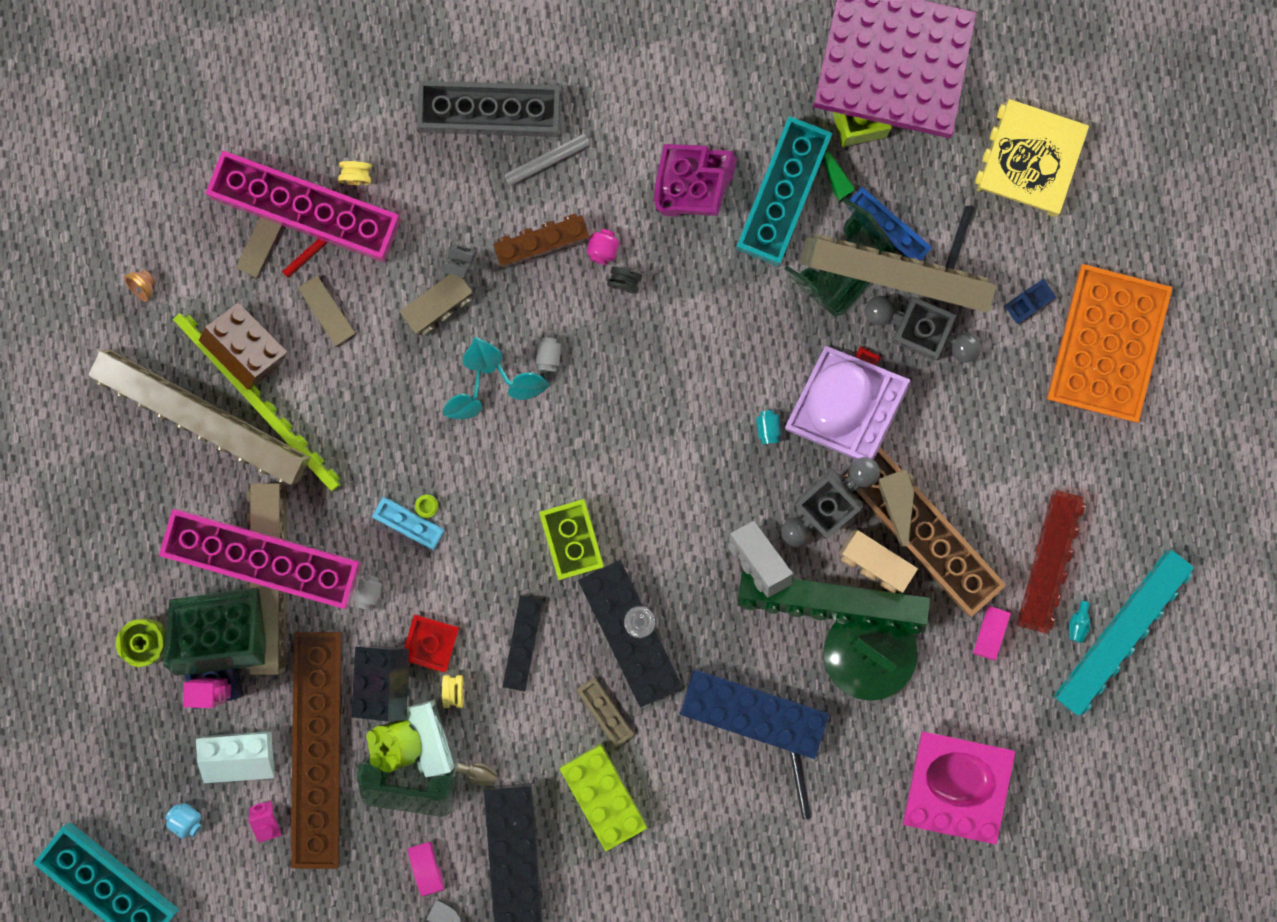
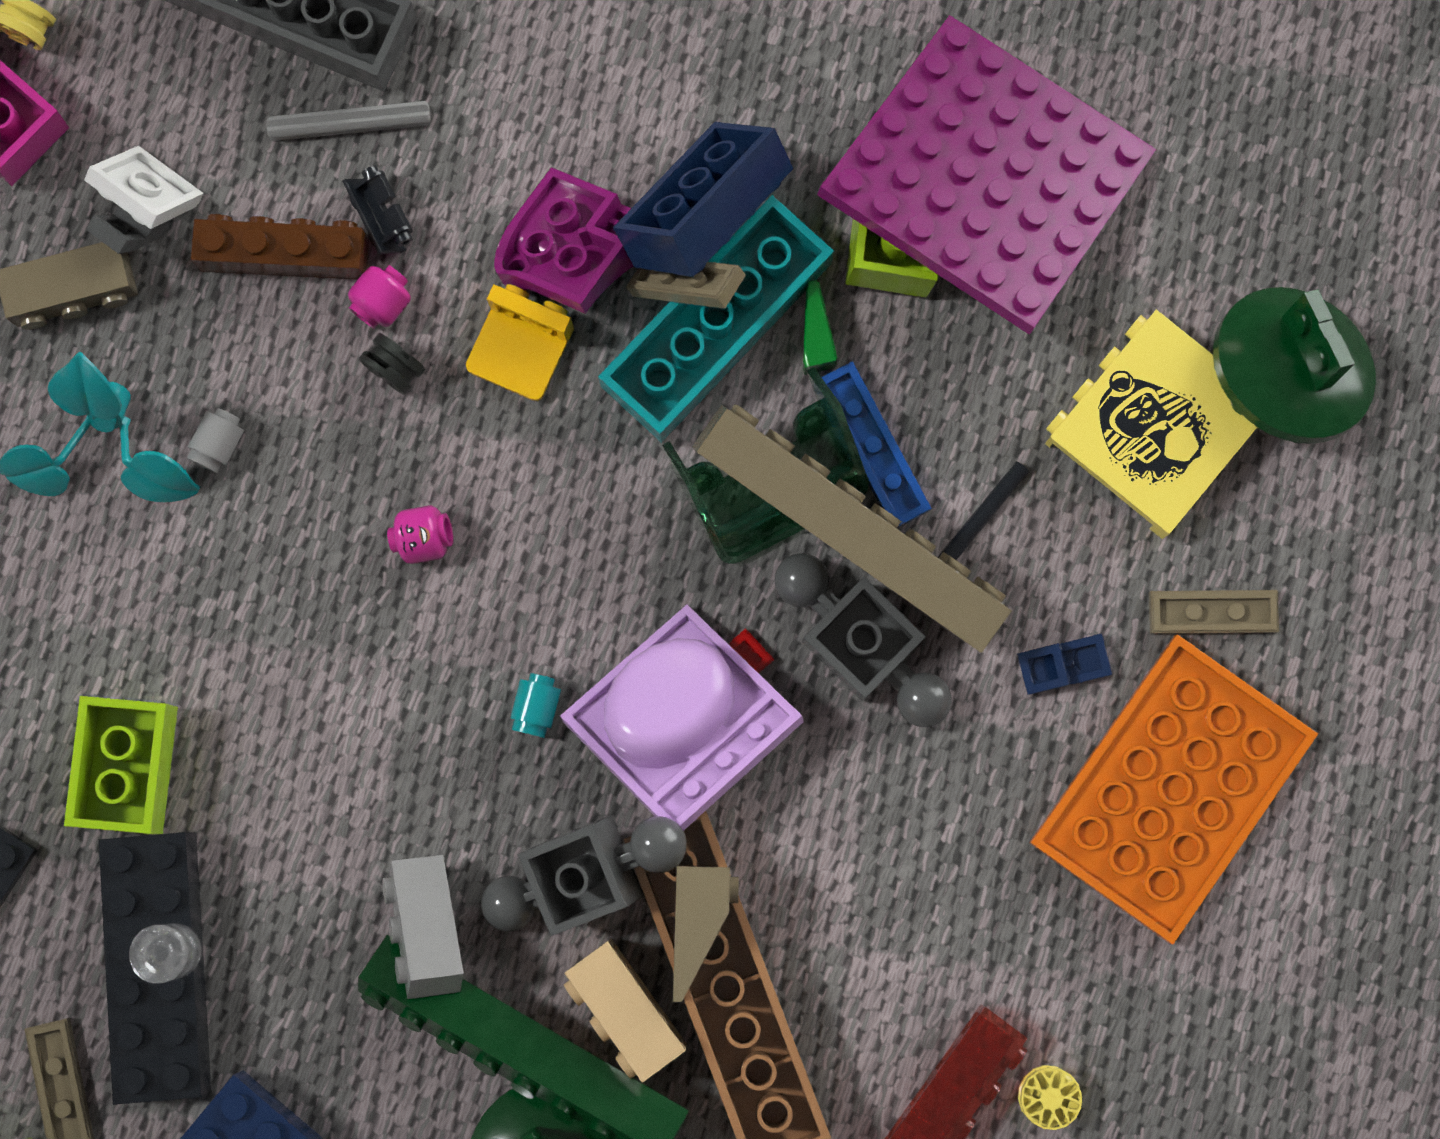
camera: 20 degrees right, 5 degrees down
(458, 237) = (143, 187): none -> white plate
(592, 209) = (386, 227): none -> black hinge
(675, 362) = (420, 534): none -> dark pink head
(685, 243) = (520, 342): none -> yellow bracket
(755, 131) = (704, 198): none -> dark blue brick
(763, 178) = (709, 287): none -> dark tan tile
(1091, 101) = (1294, 365): none -> dark green bracket
(1096, 245) = (1213, 612): none -> dark tan tile
(1105, 522) = (1049, 1097): none -> light yellow wheel

